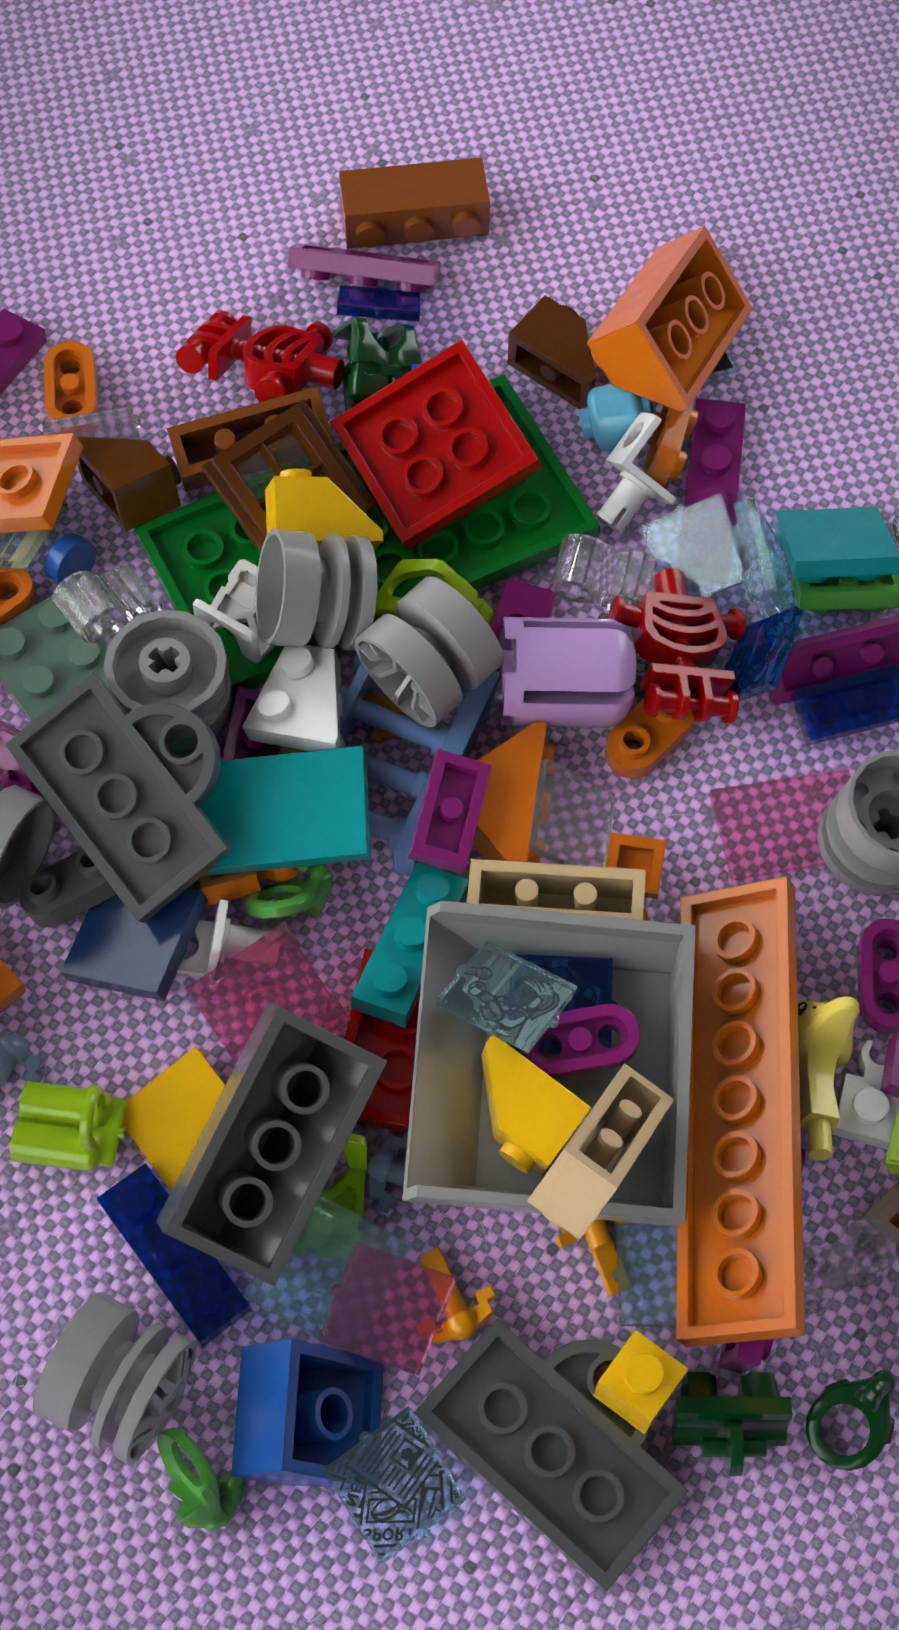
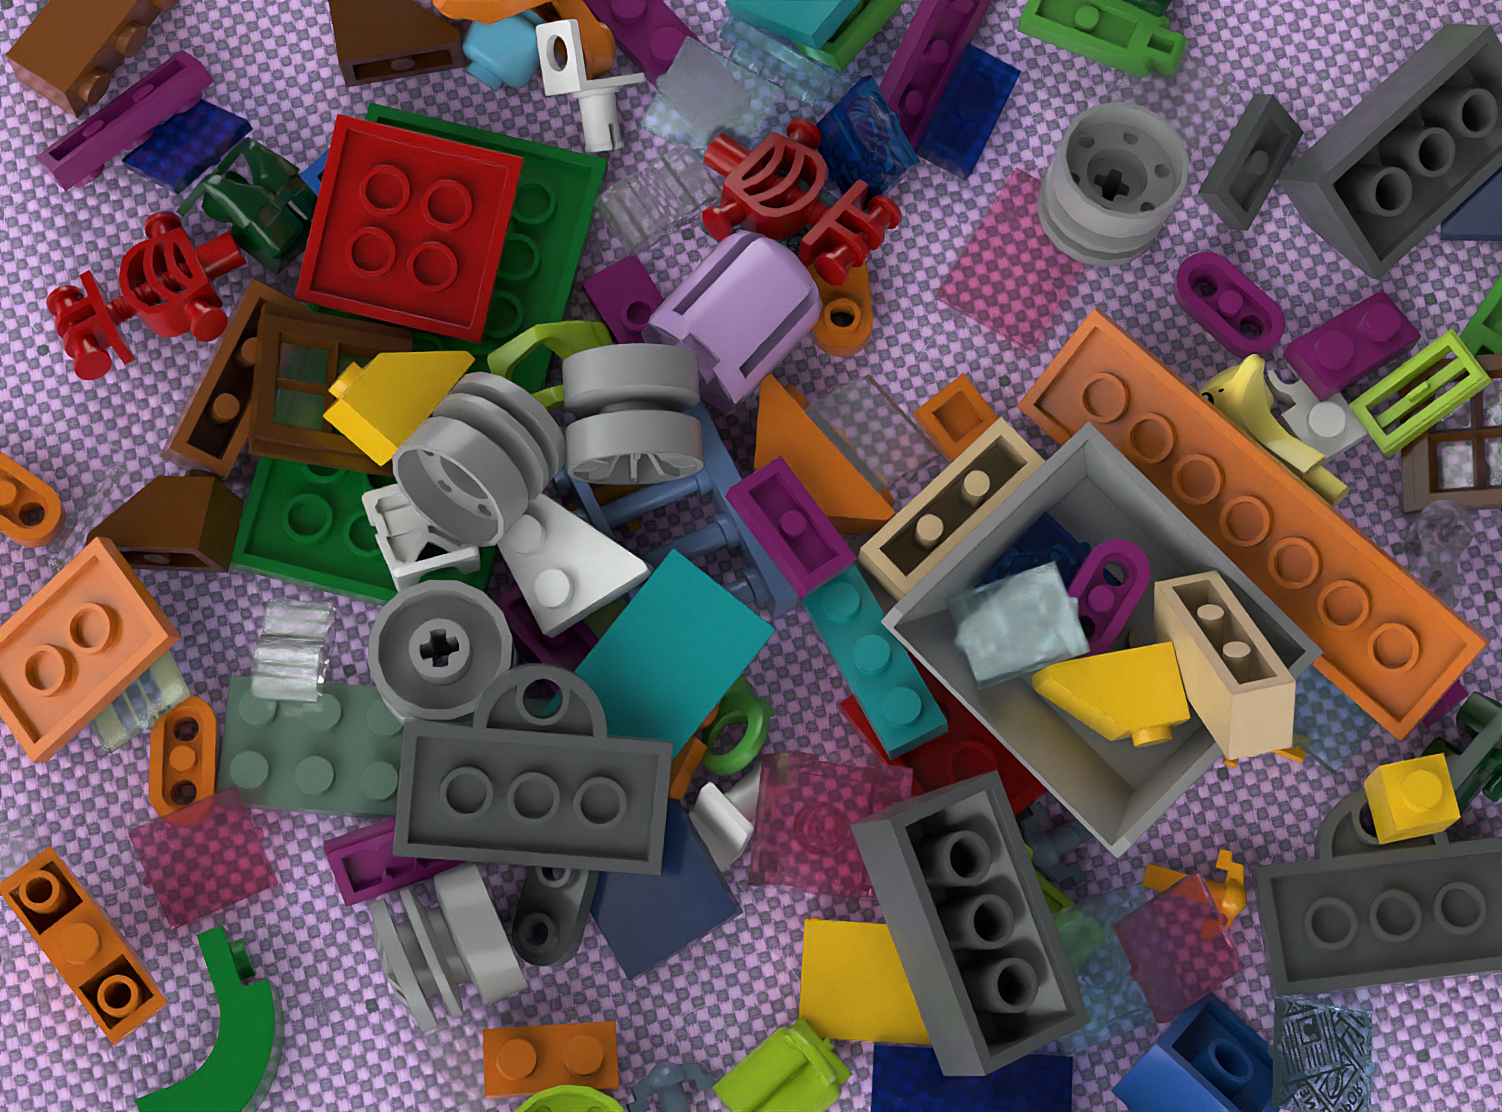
camera: 50 degrees left, 10 degrees up
(69, 556) = (206, 647): blue tile -> none

